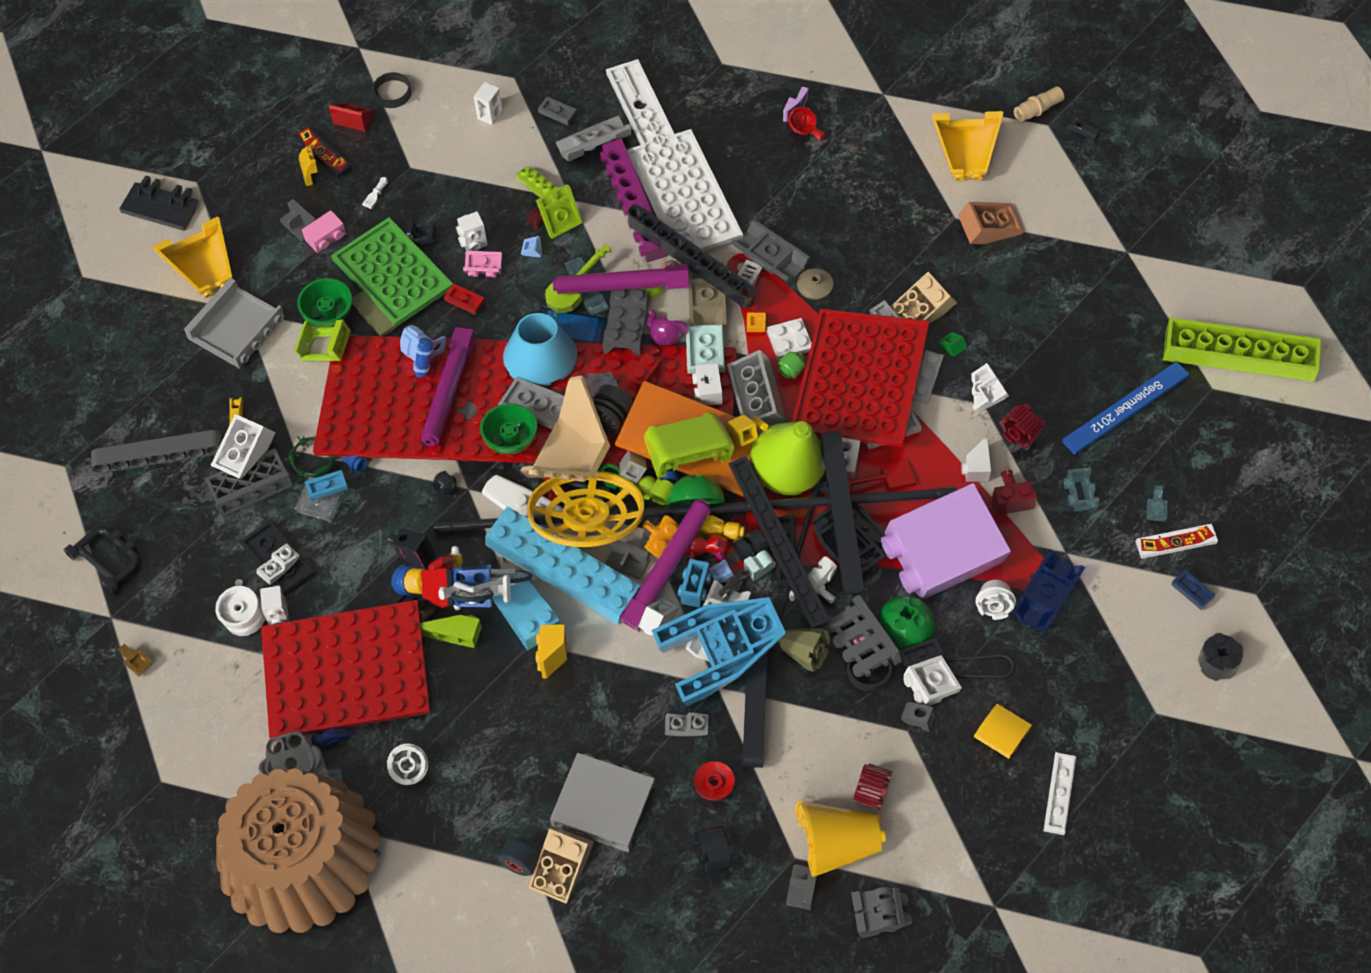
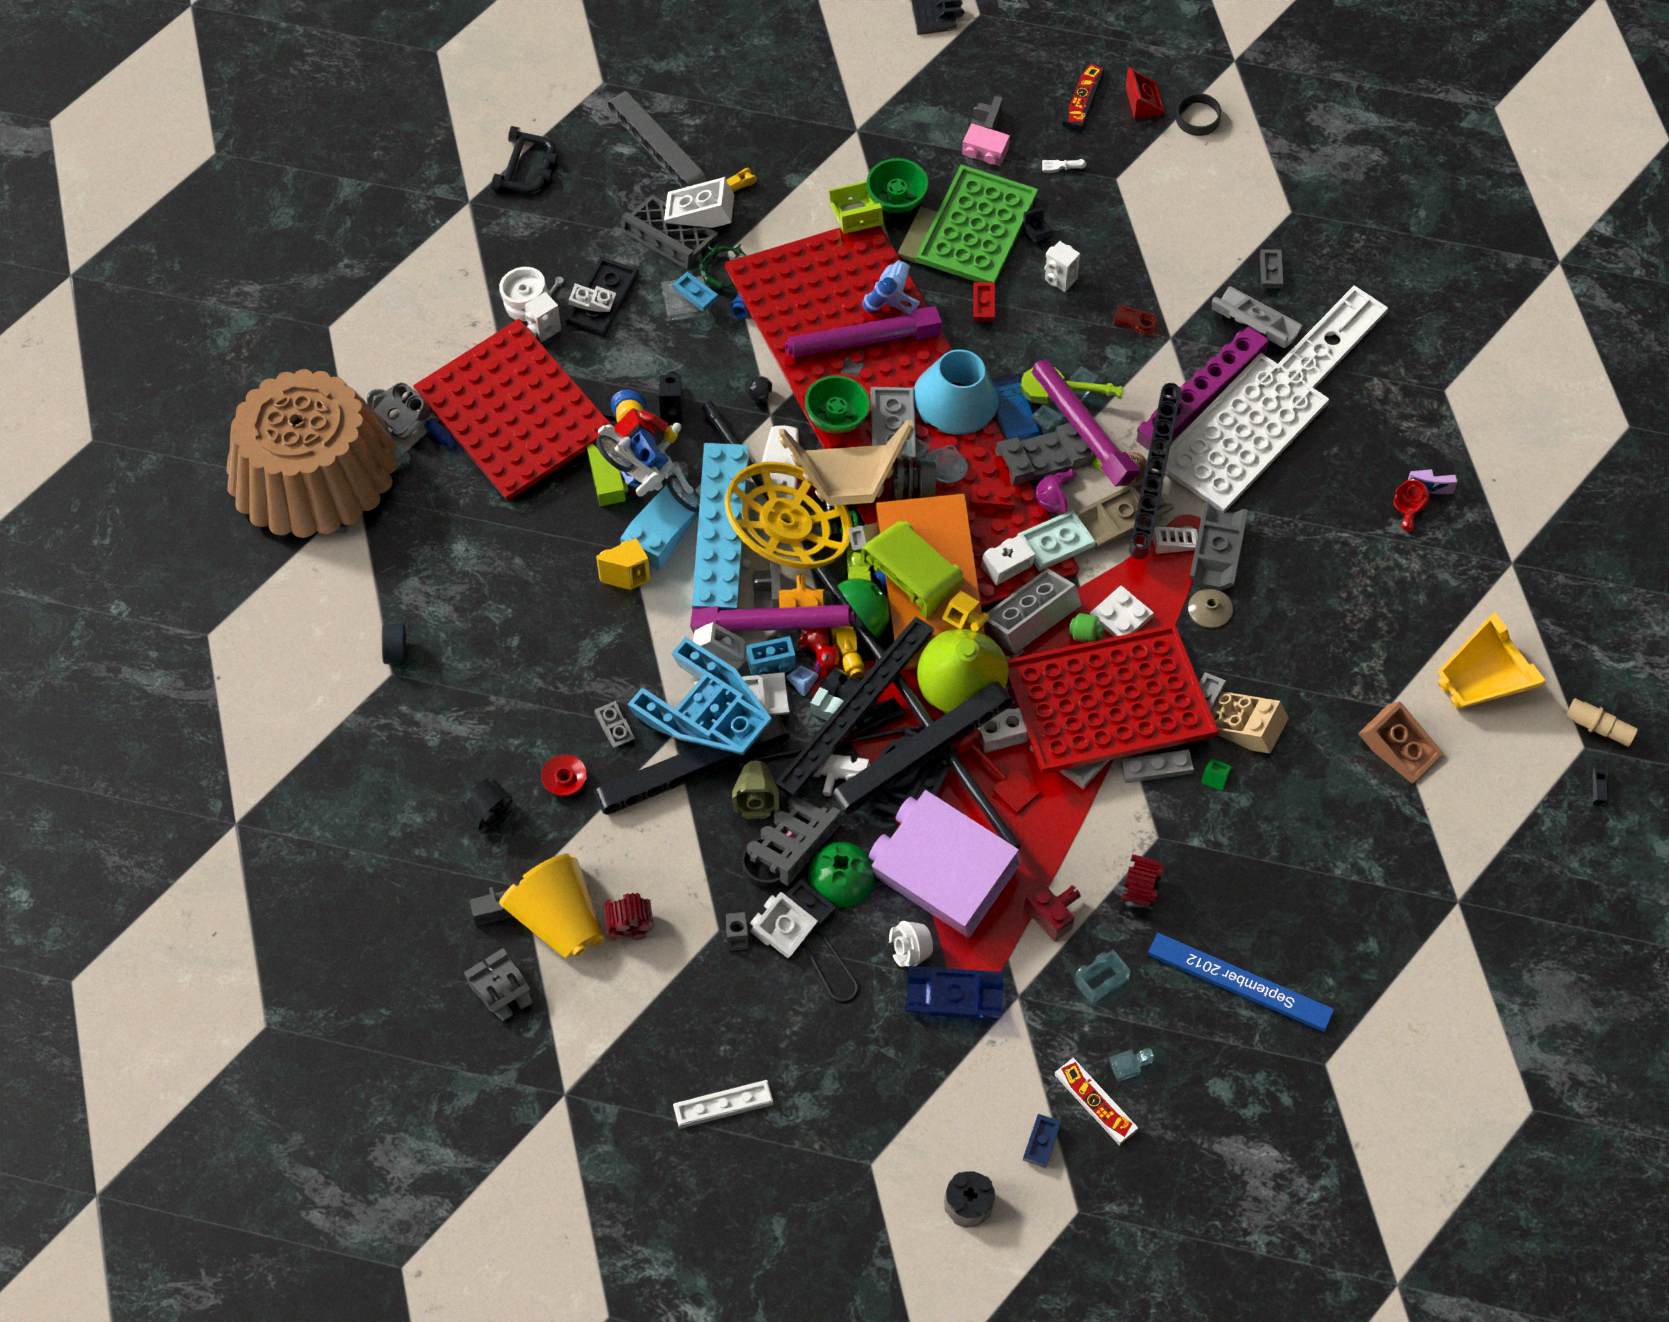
camera: 60 degrees right, 0 degrees up
(135, 661) = (433, 242): pearl gold plate -> none
(199, 258) = (881, 59): yellow cone -> none
(233, 324) = (834, 127): light grey panel -> none
(307, 164) = (1057, 90): yellow slope -> none
(407, 764) = (440, 506): white cone -> none
(483, 263) = (1036, 297): bright pink bracket -> none
(488, 103) = (1233, 201): white brick -> none
(532, 247) = (1086, 330): light blue slope -> none
(555, 203) = (1141, 319): lime bracket -> none
(560, 863) = (411, 684): tan slope -> none
(602, 801) = (491, 687): light grey panel -> none
(734, 583) = (791, 693): clear smoke pin -> none
(756, 322) = (1121, 572): light orange plate -> none
(977, 463) = (1073, 859): white slope -> none
(986, 388) = (1178, 831): white slope -> none
(1002, 730) = (764, 1018): yellow slope -> none
(1242, 349) = (1390, 1070): lime brick -> none

